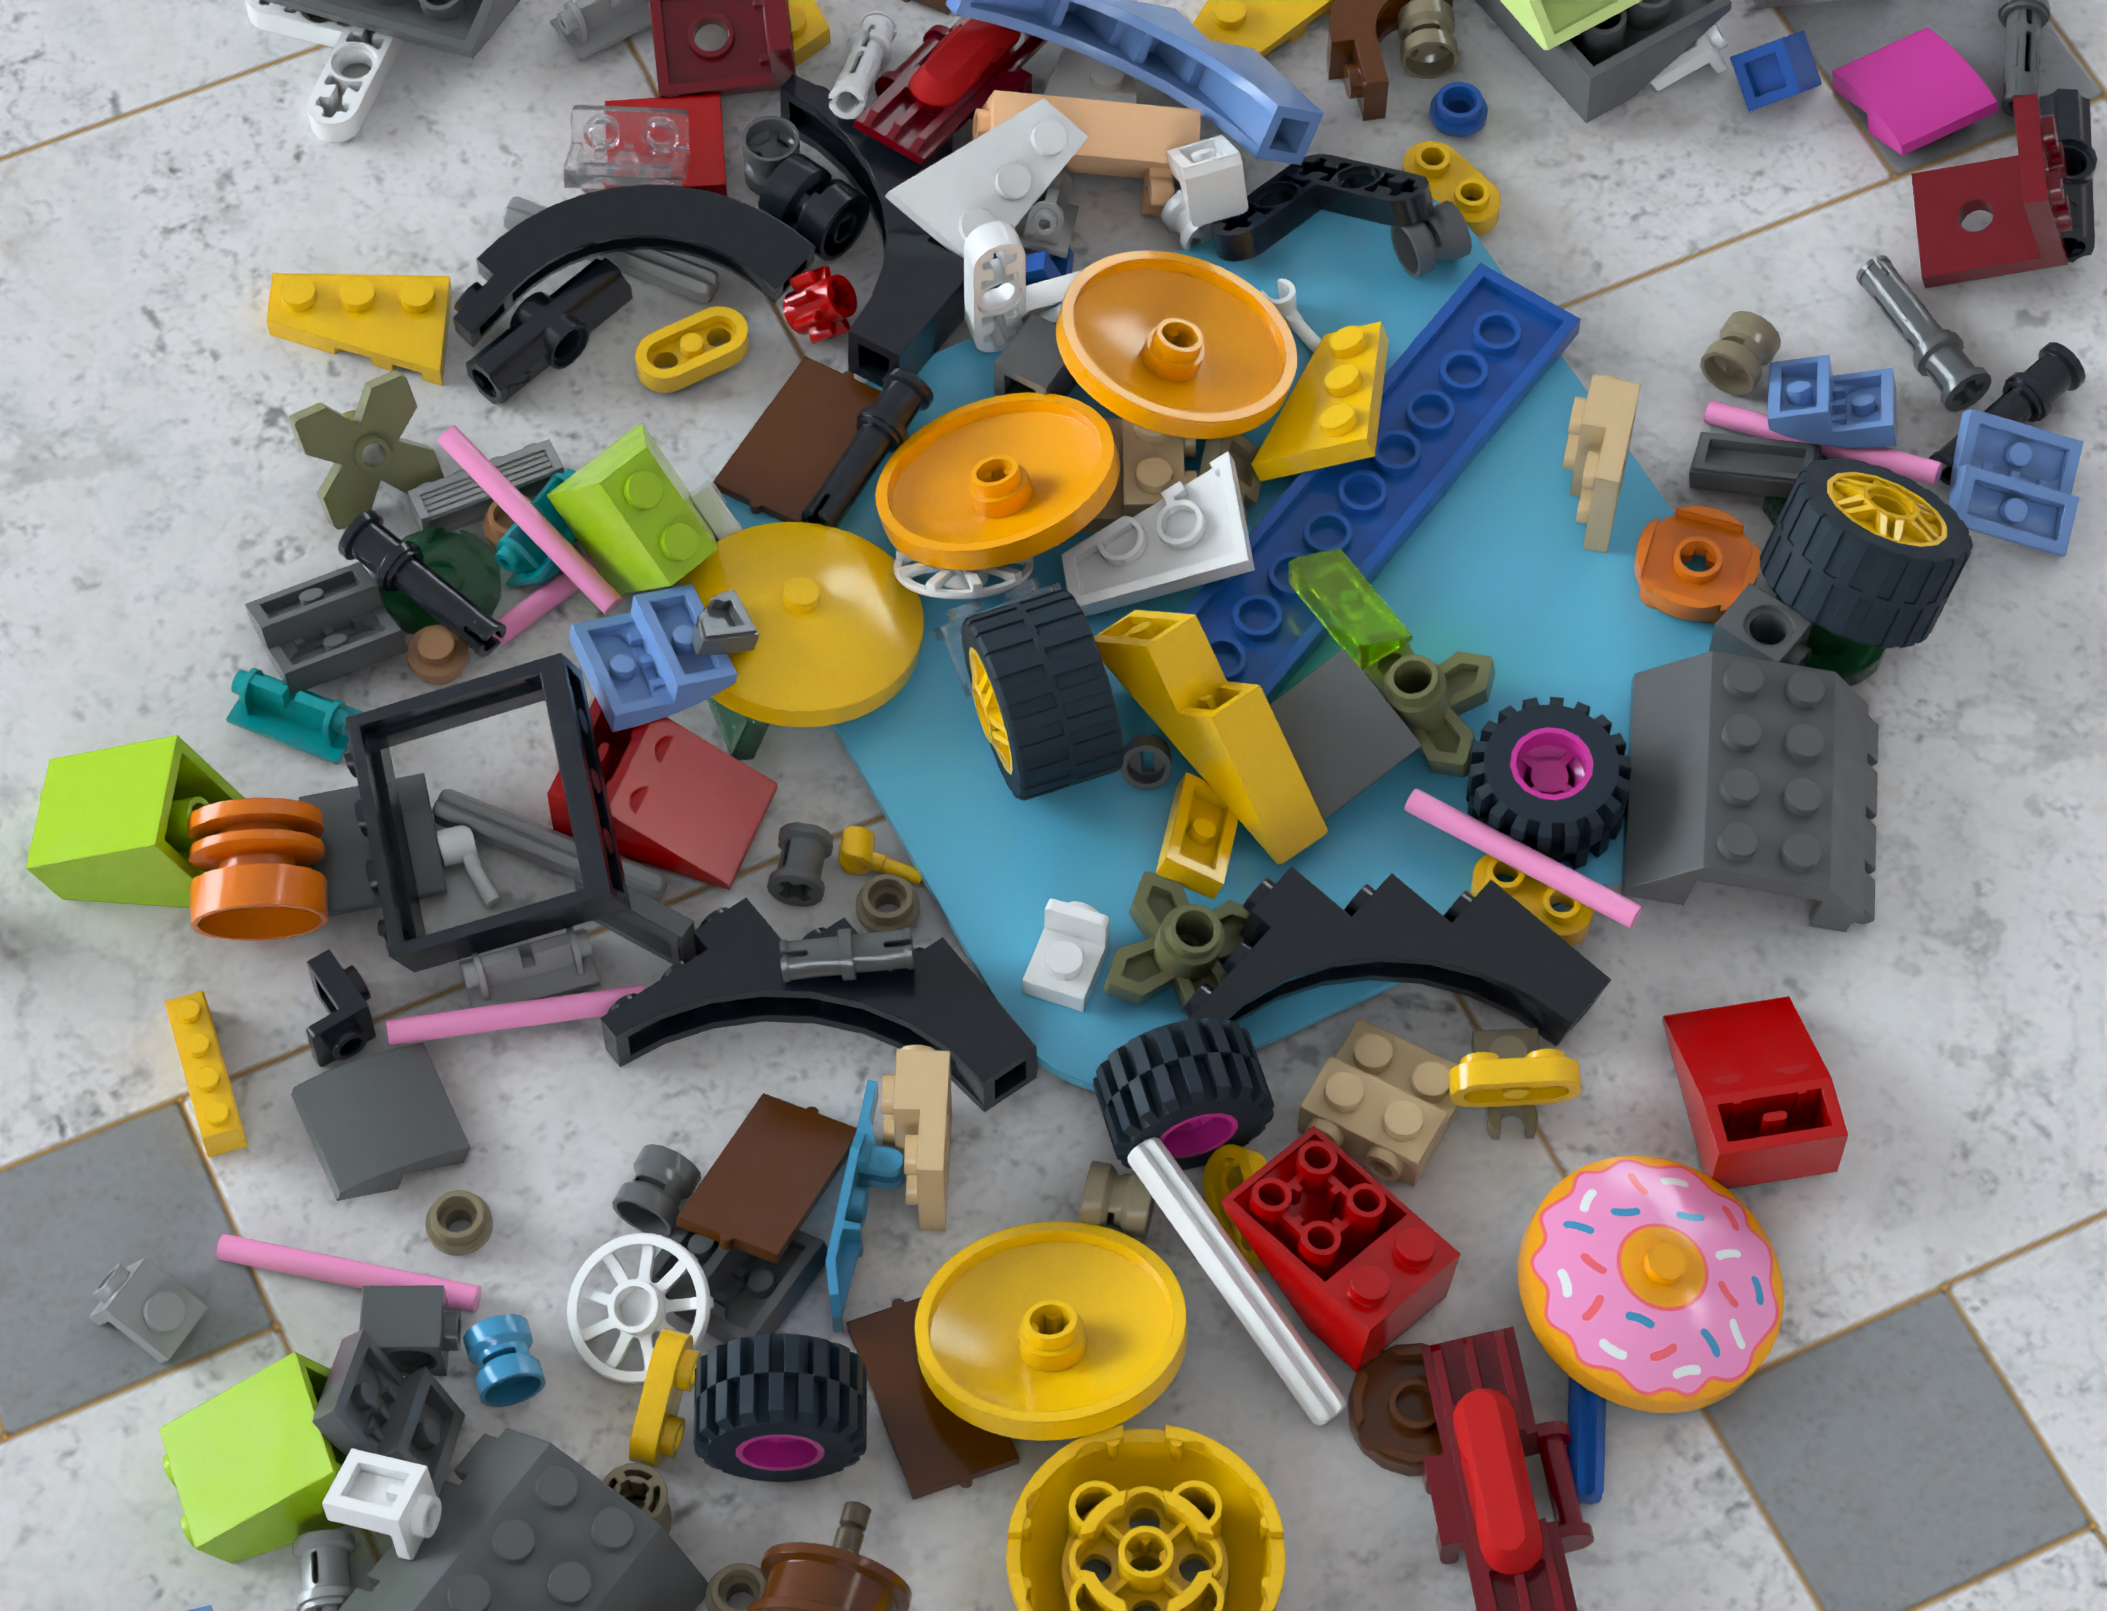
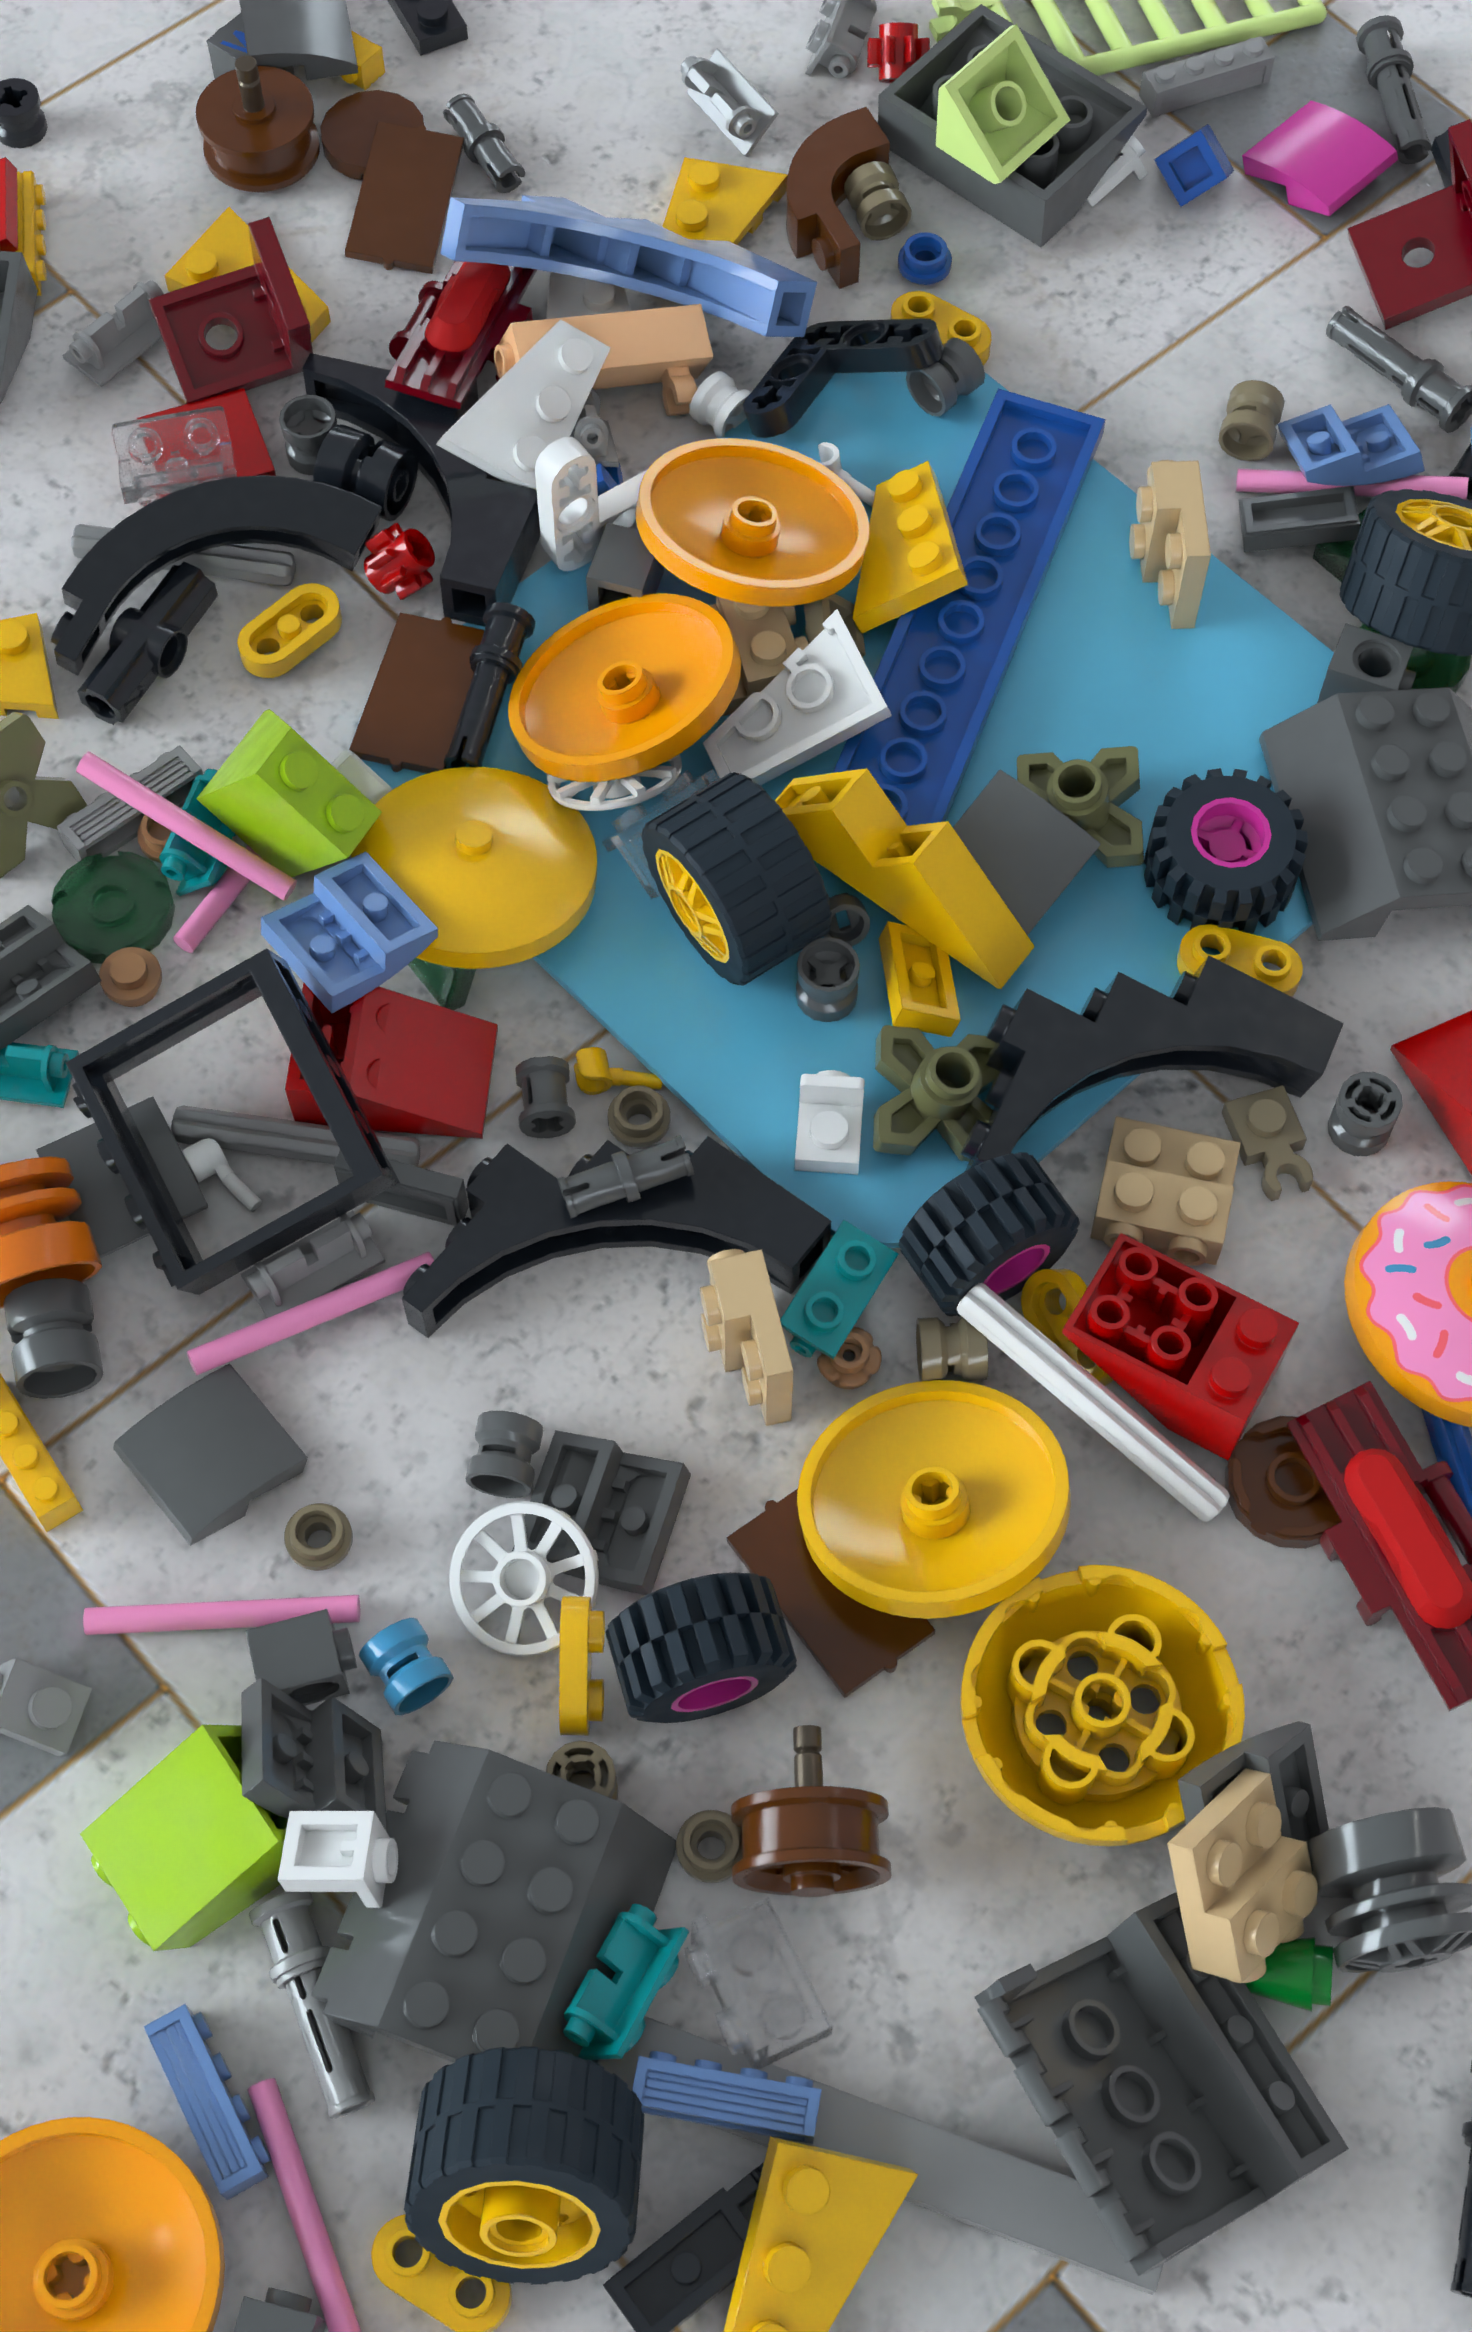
camera: 15 degrees left, 5 degrees up
(264, 977) = (53, 1338): none -> dark grey wheel
(349, 1018) = (140, 1340): black bracket -> none
(401, 568) = (74, 902): black pin -> none
(724, 627) = (412, 885): dark grey tile -> none
(768, 1178) = (611, 1415): reddish brown piece -> none
(865, 1168) = (705, 1378): dark azure piece -> none
(866, 56) = (372, 330): white pin -> none
(1013, 1199) = (855, 1372): none -> medium nougat plate
(1022, 1115) = (836, 1291): none -> teal hinge
(1118, 803) = (827, 979): none -> dark grey wheel
(1210, 179) = (735, 362): white slope -> none
(1347, 606) = (986, 729): clear neon green slope -> none
(1523, 858) = (1227, 928): bright pink bar -> none
(1537, 1079) = (1307, 1134): yellow plate -> none
(1604, 1090) = (1354, 1123): none -> dark grey wheel
(1687, 593) = (1275, 646): orange plate -> none

